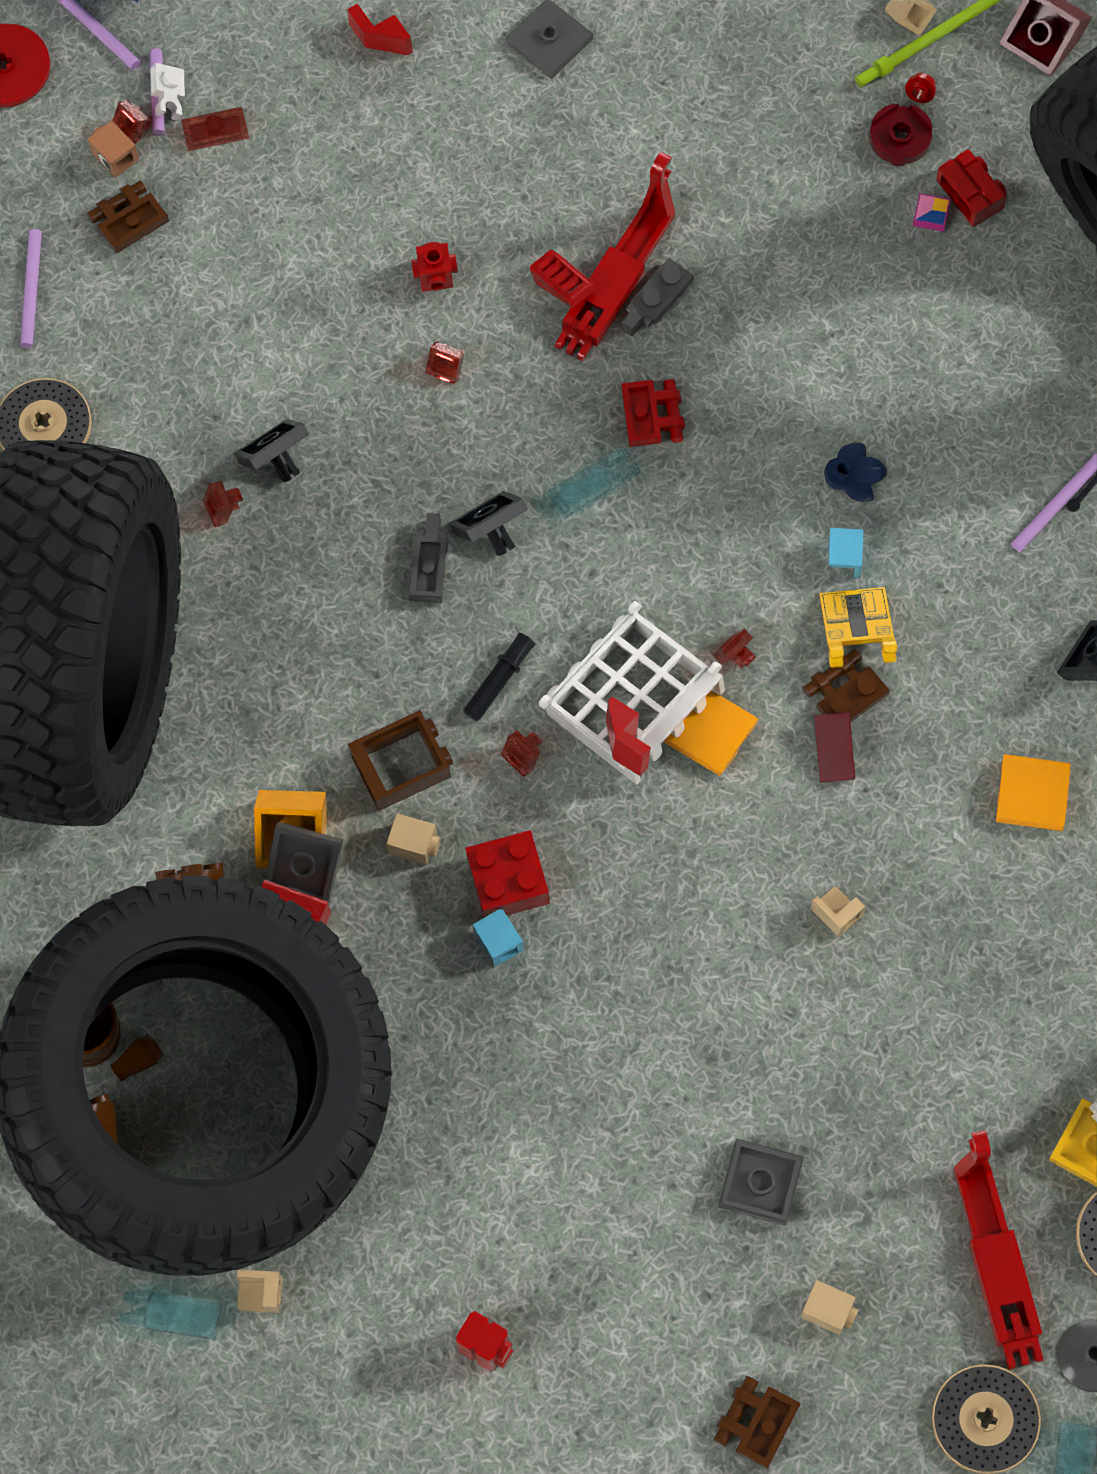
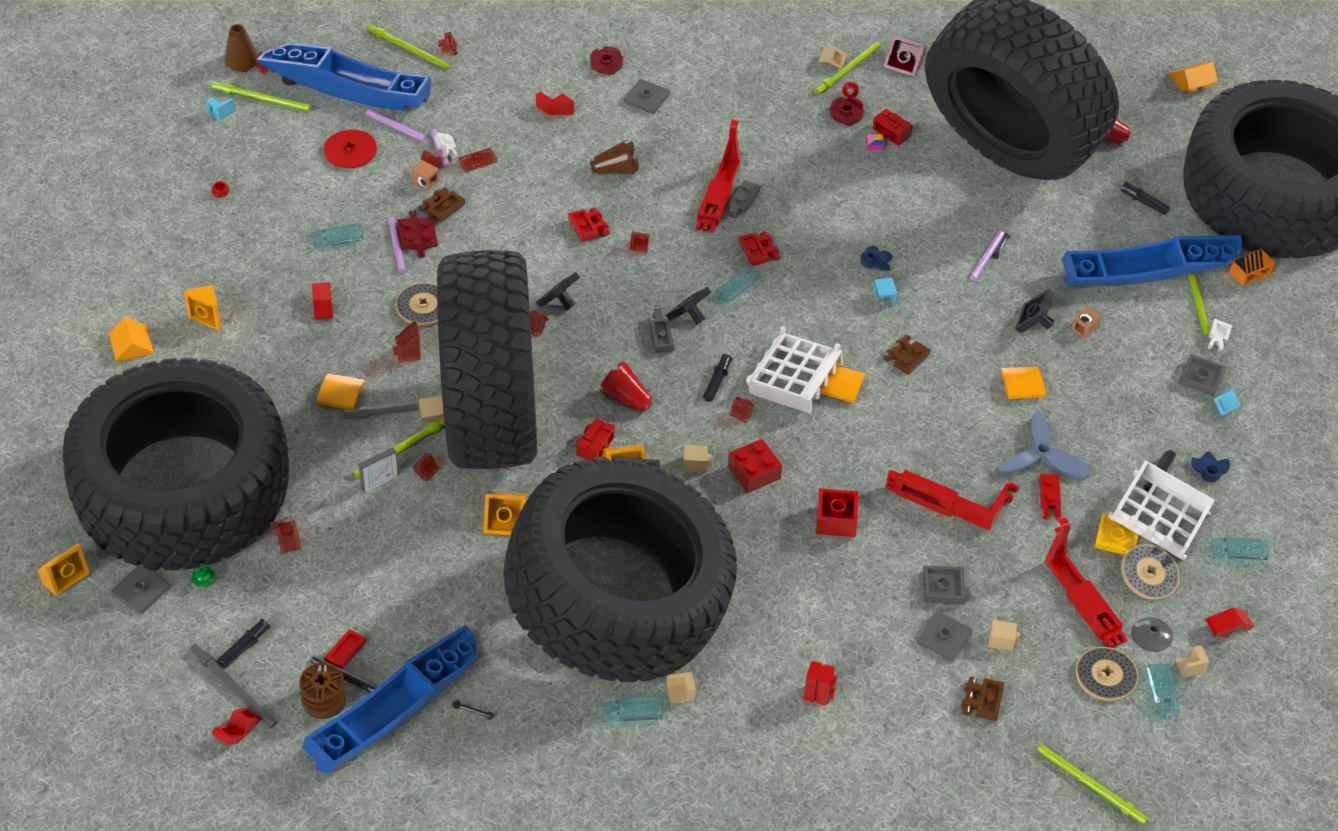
camera: 20 degrees left, 20 degrees down
(63, 880) = (502, 511): none -> light orange slope
(70, 270) = (417, 233): none -> dark red plate
(253, 766) = (595, 439): none -> red brick
(333, 674) = (626, 388): none -> red cone
(358, 306) = (584, 226): none -> red plate
(388, 735) = (668, 439): reddish brown window -> none
(434, 266) = (620, 200): red brick -> none
(453, 178) = (616, 160): none -> reddish brown cone
(498, 937) = (759, 495): medium azure panel -> none
(559, 277) = (690, 195): red slope -> none
(618, 1003) = (837, 512): none -> red brick
(622, 729) = (800, 383): red slope -> none
(731, 1282) = (944, 636): none -> dark grey plate
(735, 649) = (846, 345): clear red tile -> none
(818, 1018) = (945, 499): none -> red hinge
(834, 747) = (911, 378): dark red slope -> none
(837, 910) = (938, 454): tan panel -> none
(856, 619) = (903, 320): yellow flag -> none
(1006, 1035) = (1050, 494): none -> red hinge
(1039, 966) = (1044, 454): none -> sand blue piece

